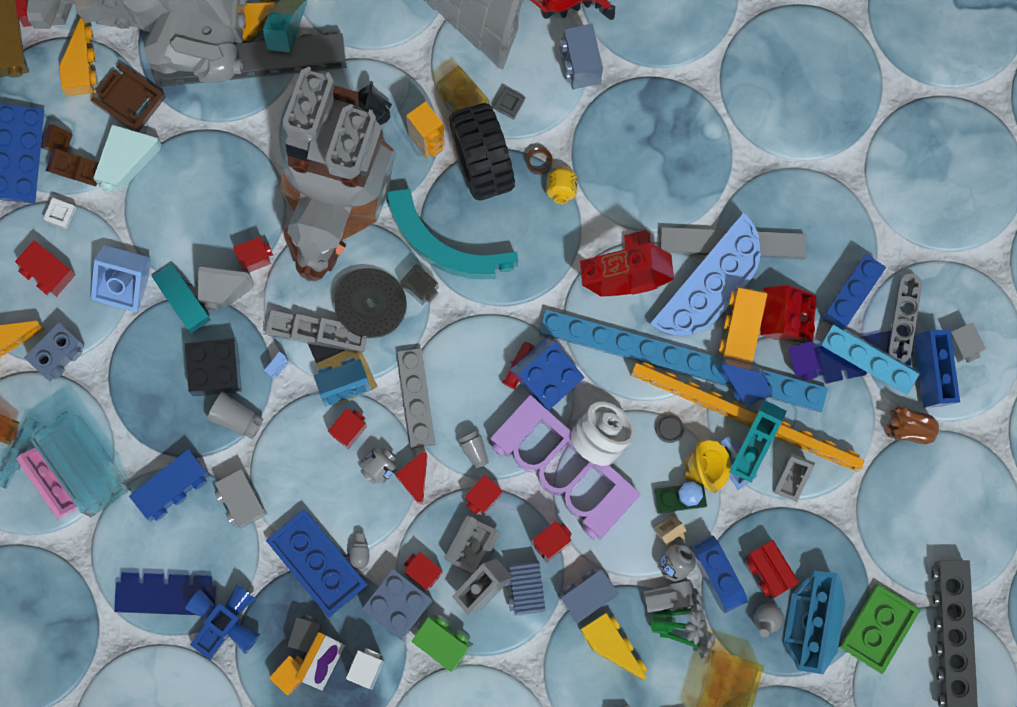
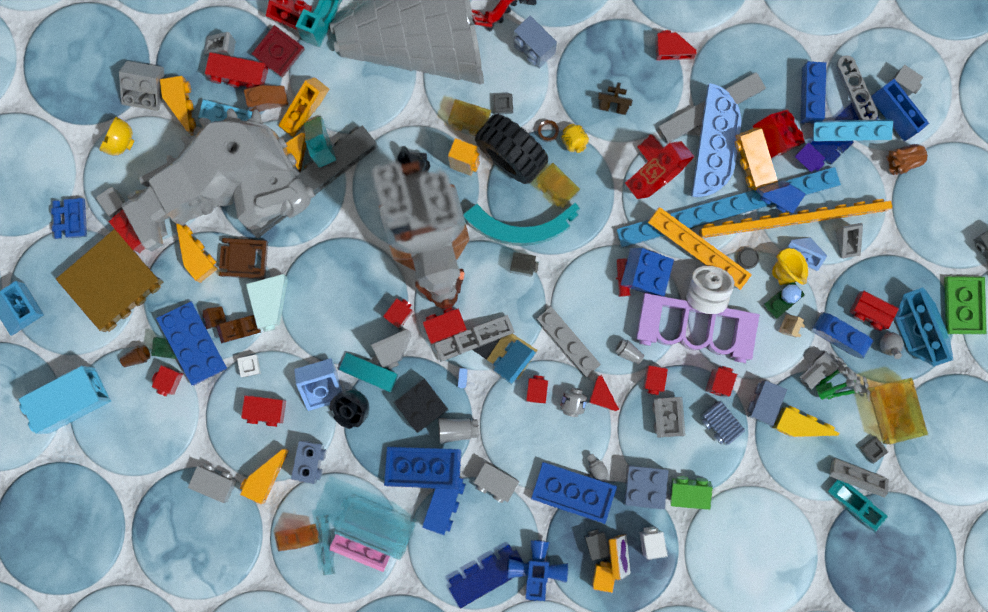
camera: 25 degrees left, 5 degrees up
(135, 322) = (350, 408): none -> black cylinder
(171, 433) = (422, 468): none -> blue plate
(293, 297) = (444, 326): none -> red brick
(354, 311) = (499, 283): clear smoke piece -> none
(422, 570) = (647, 454): red brick -> none
(482, 586) = (695, 440): light grey brick -> none
(510, 224) = (557, 186): none -> clear yellow brick
(620, 381) = (697, 246): none -> light orange plate
(623, 164) = (606, 99): none -> dark brown hips
(677, 563) = (810, 344): light grey head -> none
(730, 152) = (673, 47): none -> red slope
(758, 441) = (815, 230): teal slope -> none

